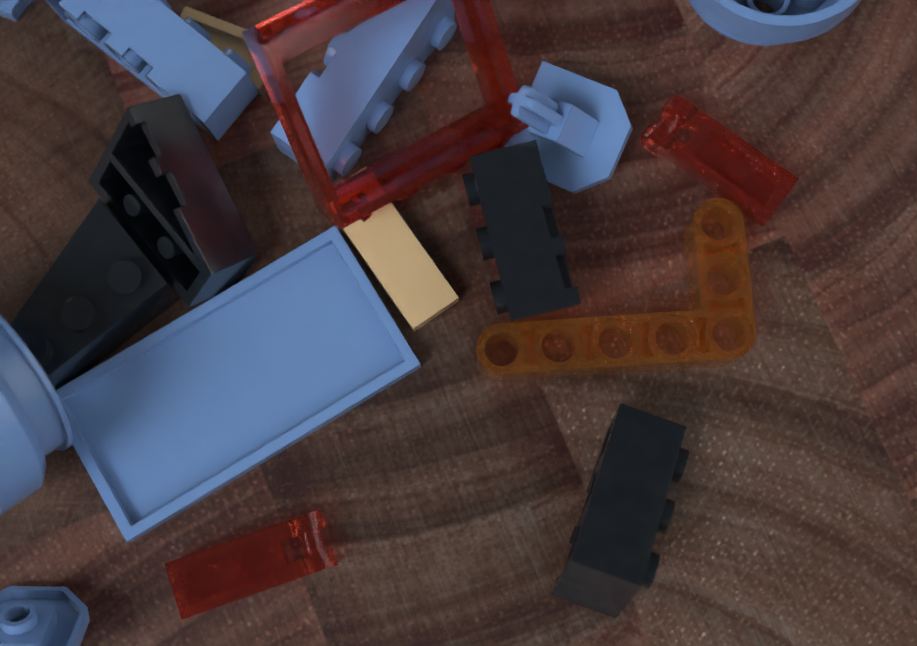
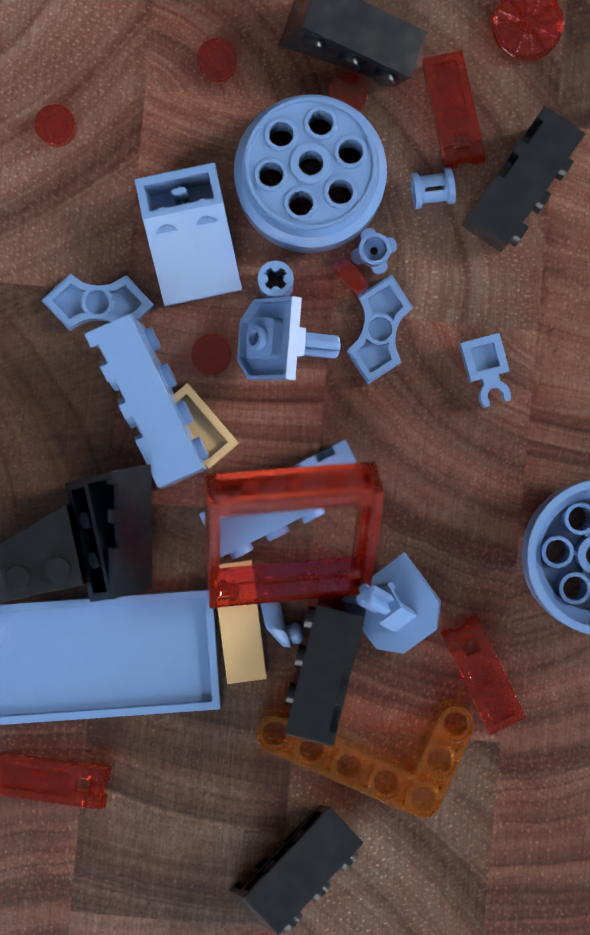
camera: 30 degrees right, 10 degrees up
(435, 226) = (277, 626): none -> medium blue arm

